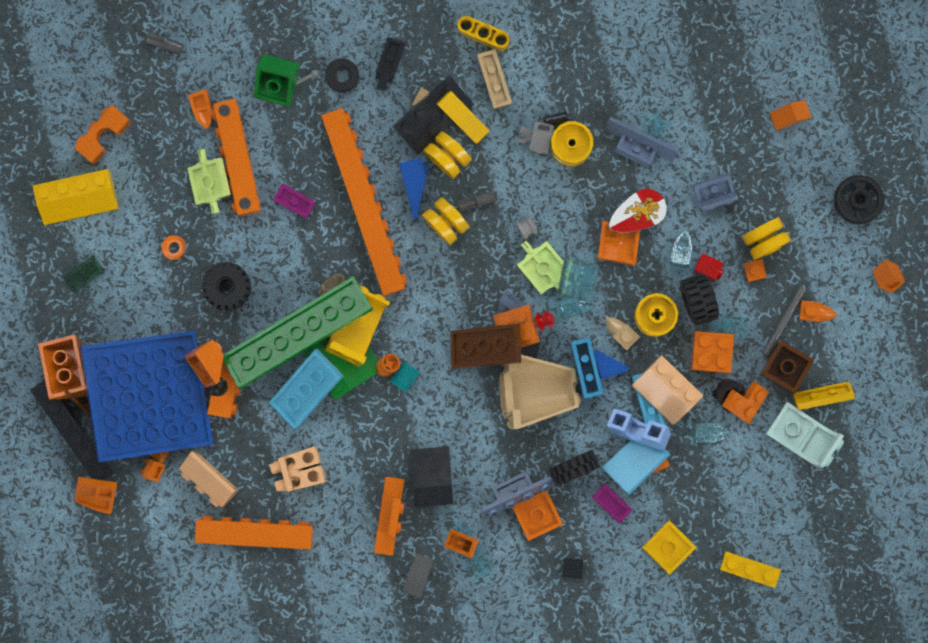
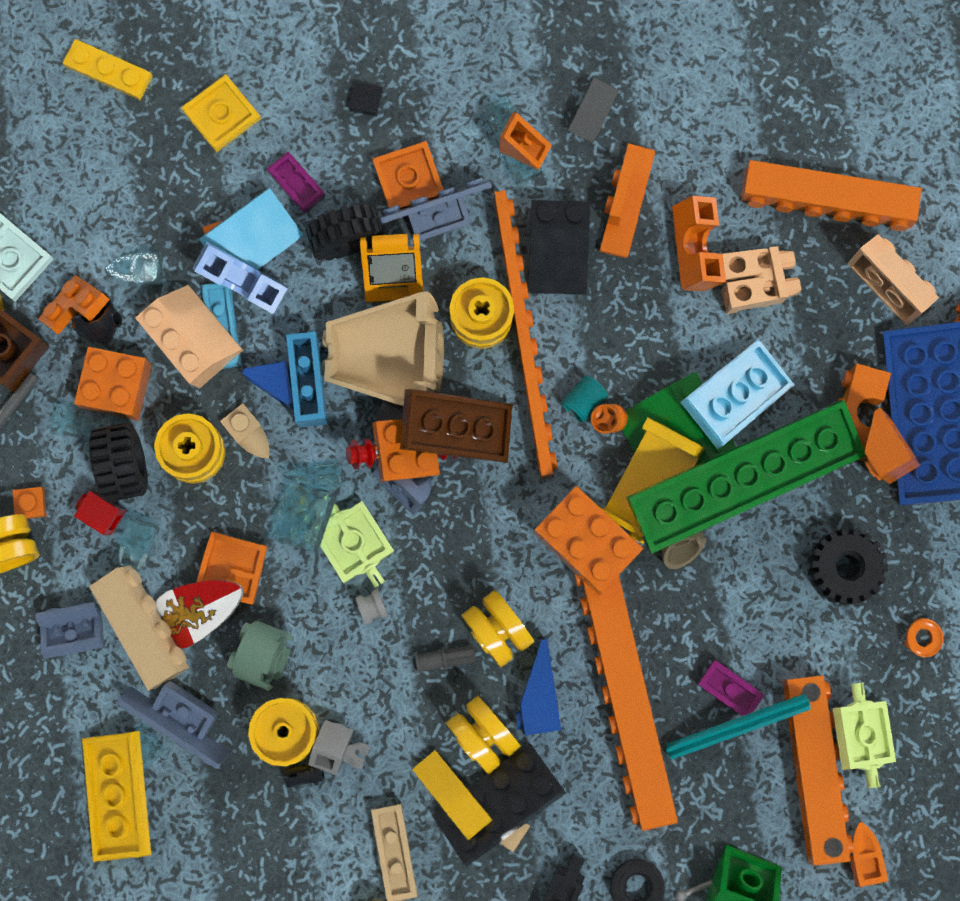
camera: 175 degrees left, 5 degrees down
(288, 177) = (738, 726): none -> teal axle
(340, 476) = (692, 225): none -> orange arch
(394, 280) = (587, 540): none -> orange brick
(450, 425) = (527, 346): none -> orange plate
(475, 414) = (481, 296): none -> yellow wheel
(540, 447) = (391, 264): none -> light orange container
(592, 189) = (260, 654): none -> sand green brick
(670, 94) = (116, 796): none -> yellow tile
(671, 198) = (139, 627): none -> tan brick

